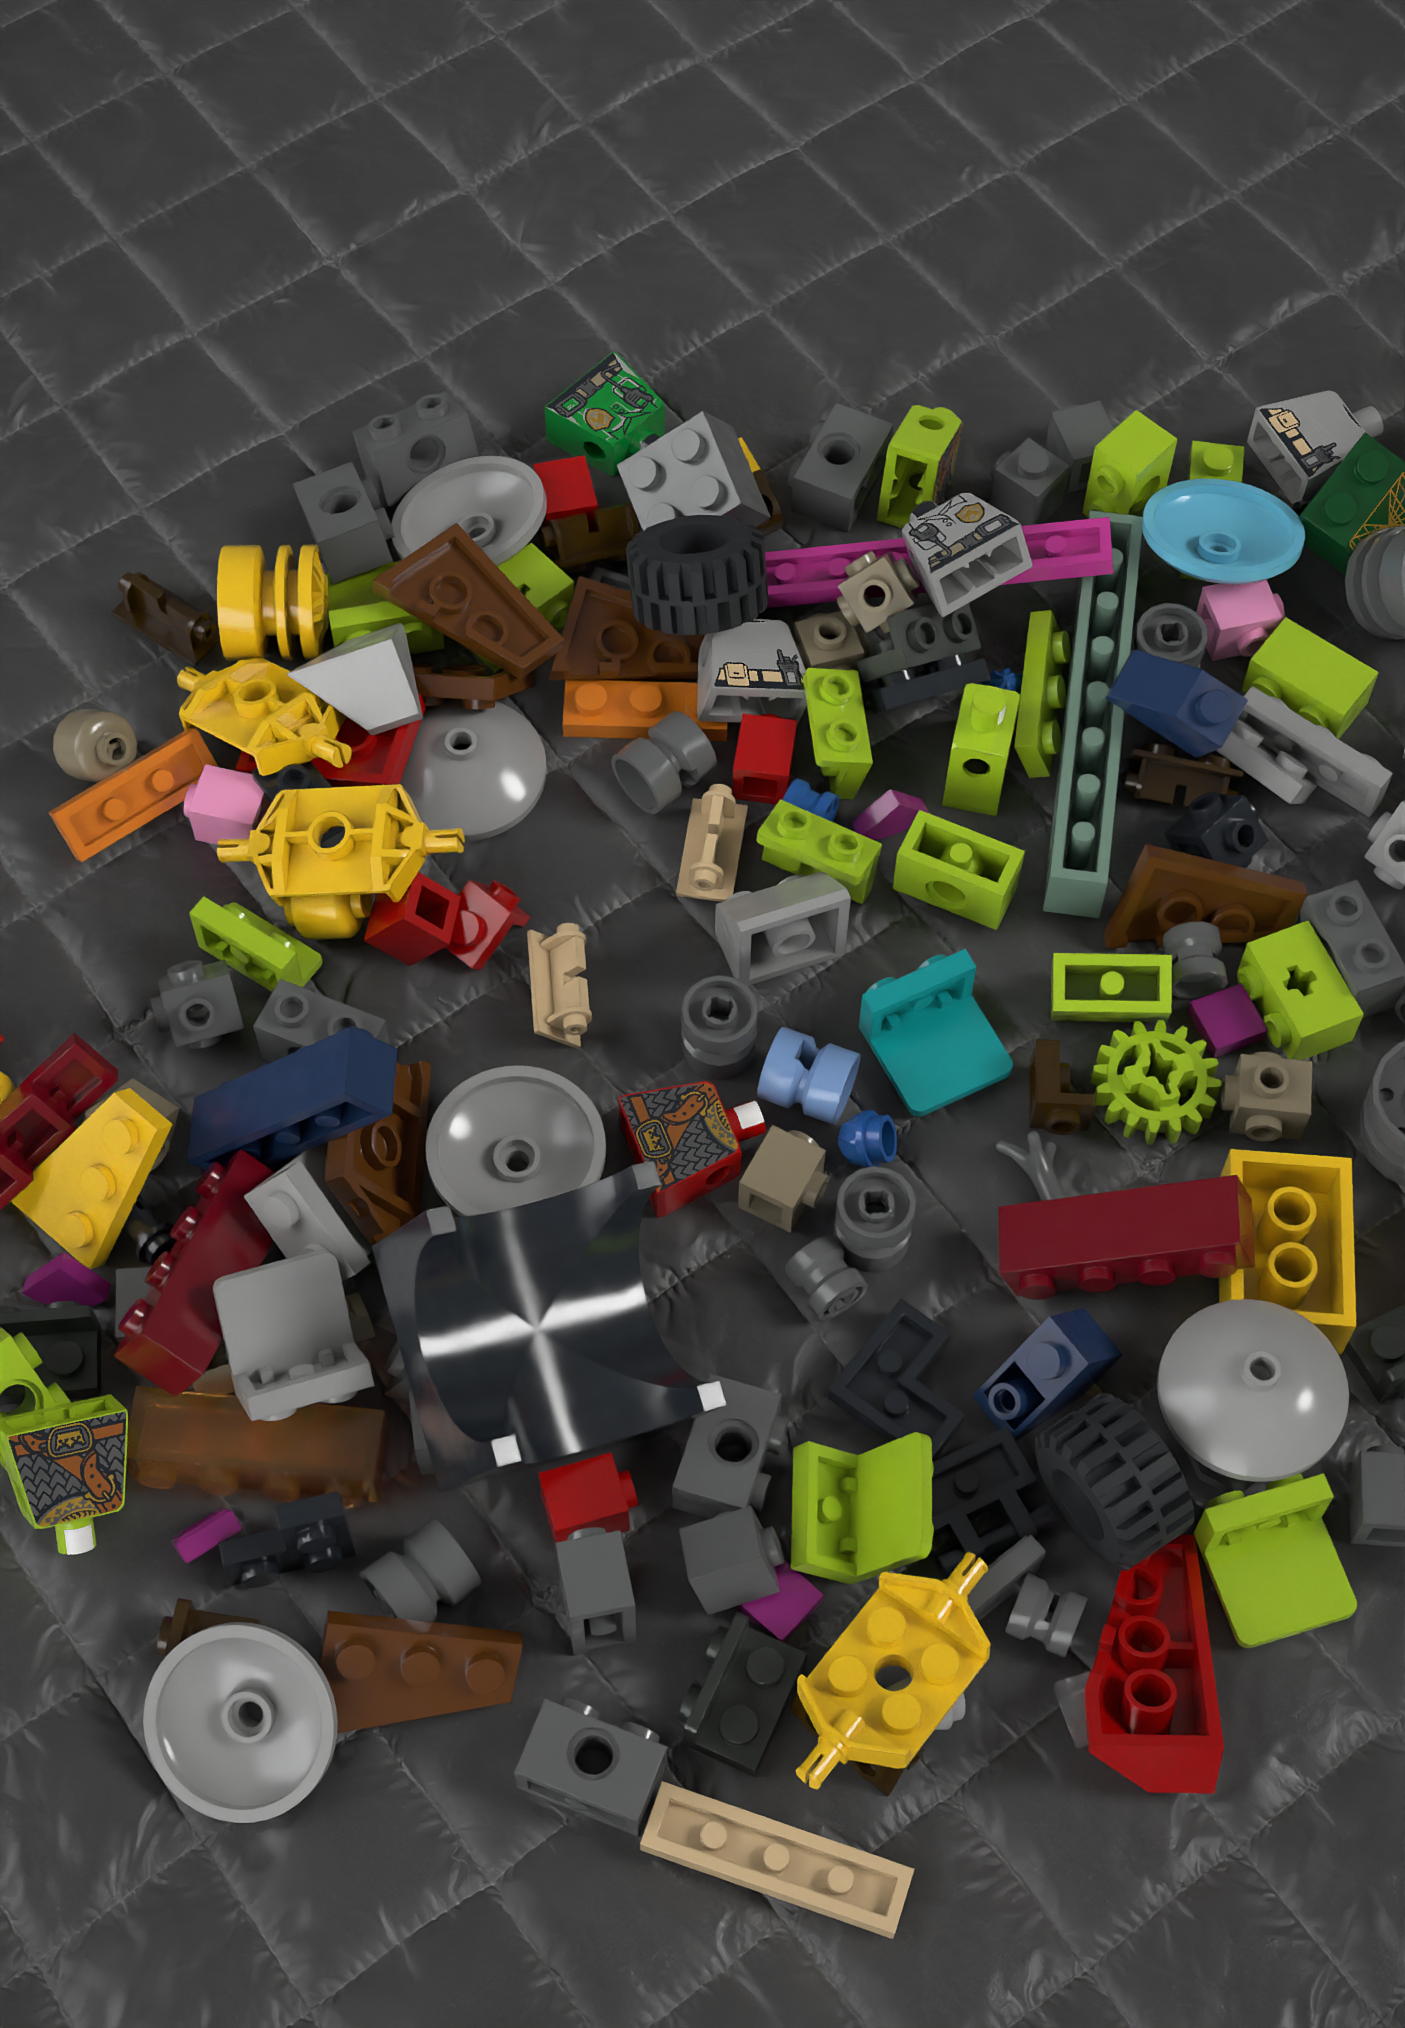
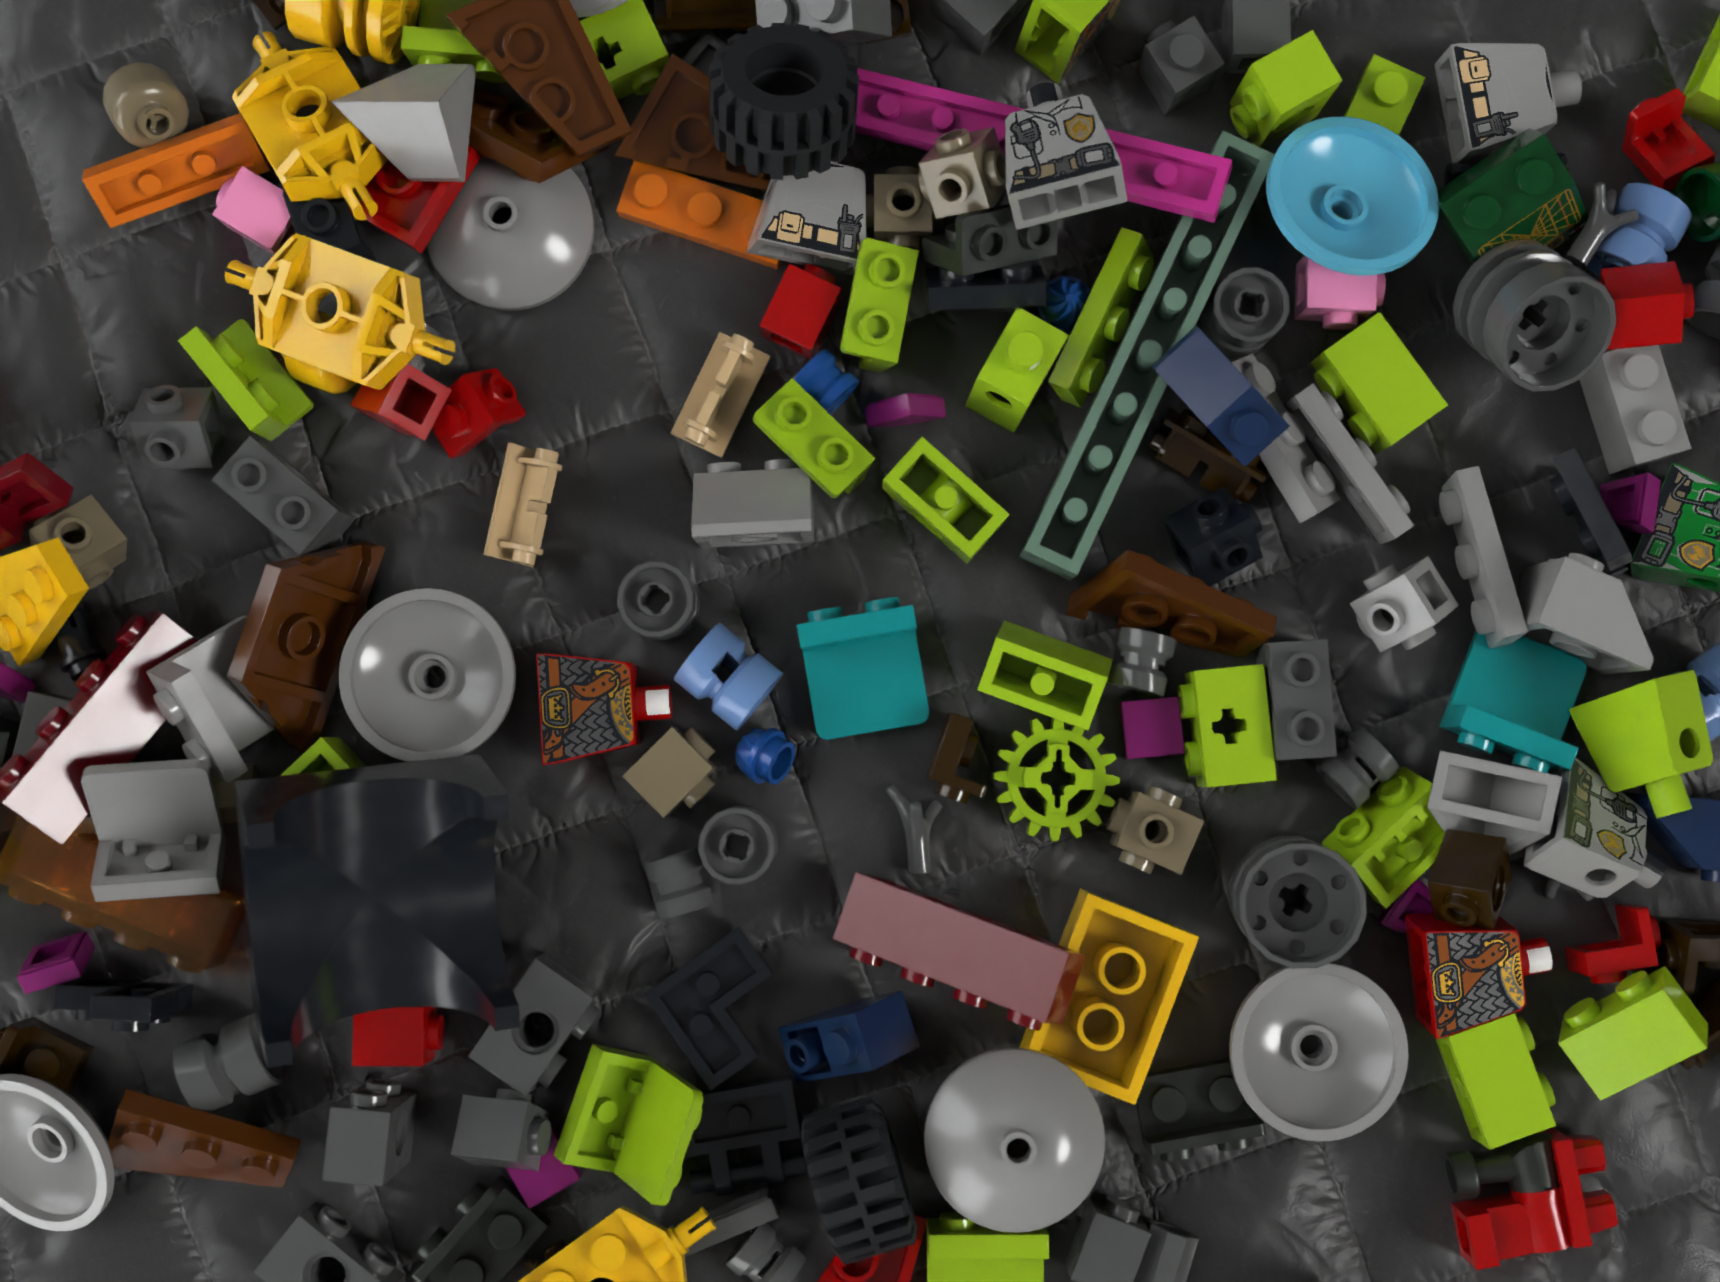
camera: 20 degrees right, 25 degrees up
(296, 1101) = (218, 587): dark blue brick -> none
(657, 767) = (699, 289): dark grey wheel -> none

